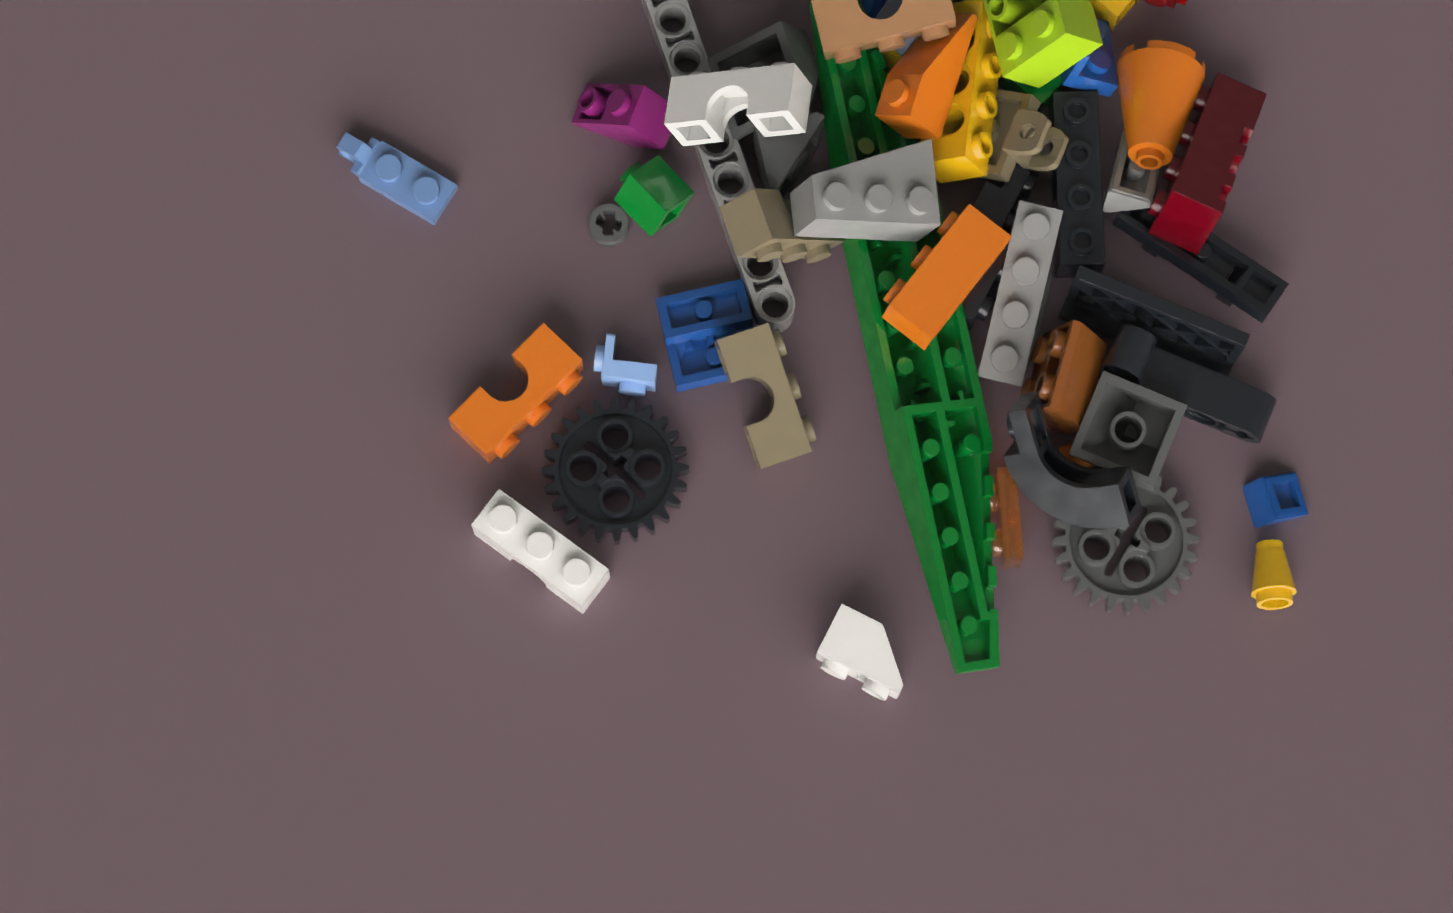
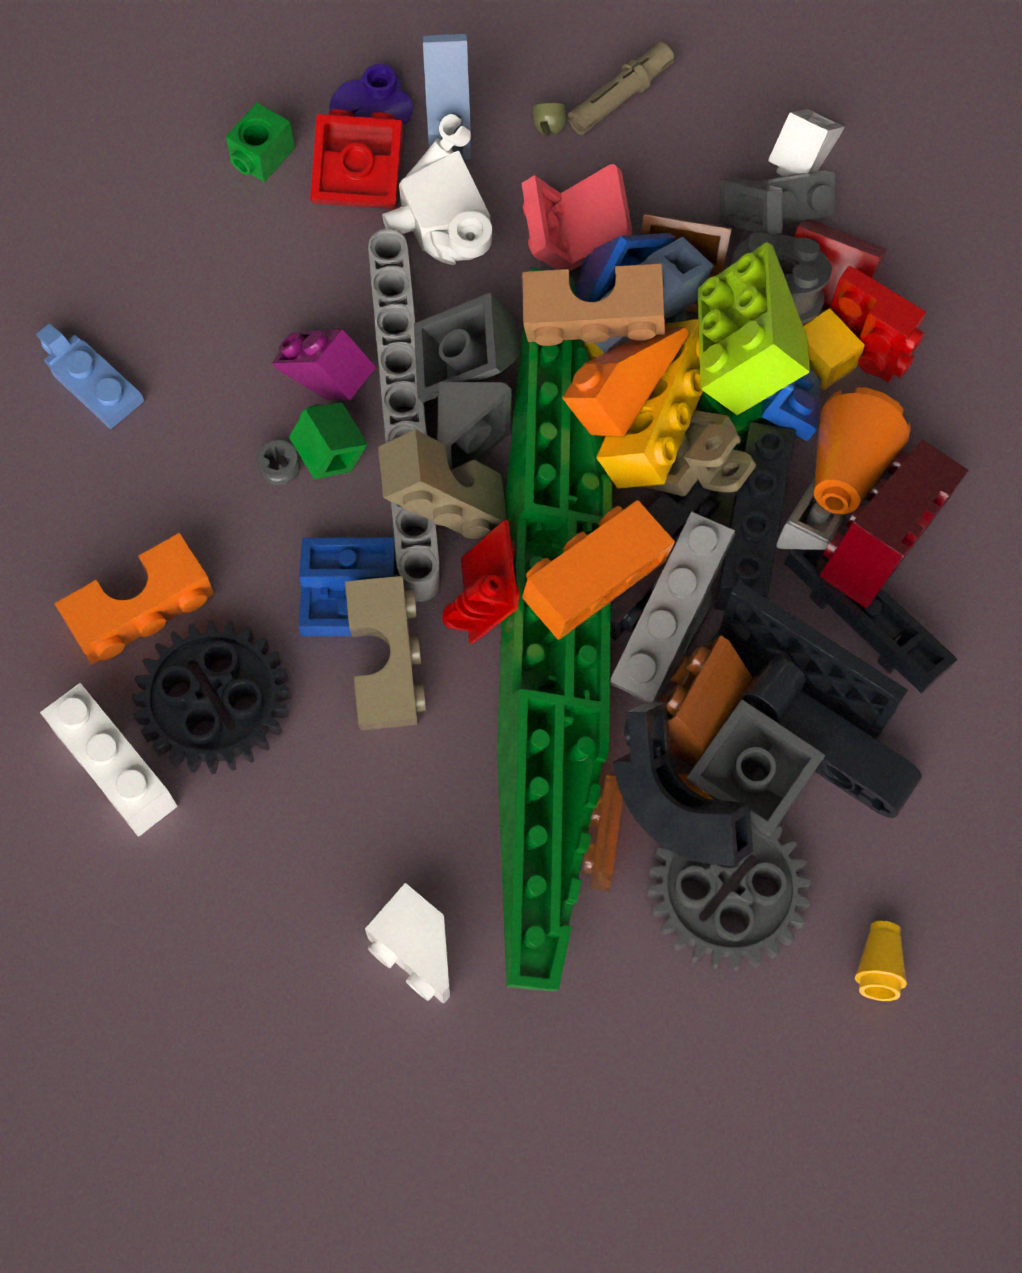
camera: 15 degrees right, 10 degrees down
(628, 376) = (250, 605): light blue bracket -> none
(704, 102) = (458, 352): white arch -> none
(843, 308) = (488, 586): none -> red hinge
(871, 198) = (535, 471): light grey wedge -> none
(1275, 499) = (900, 881): blue slope -> none

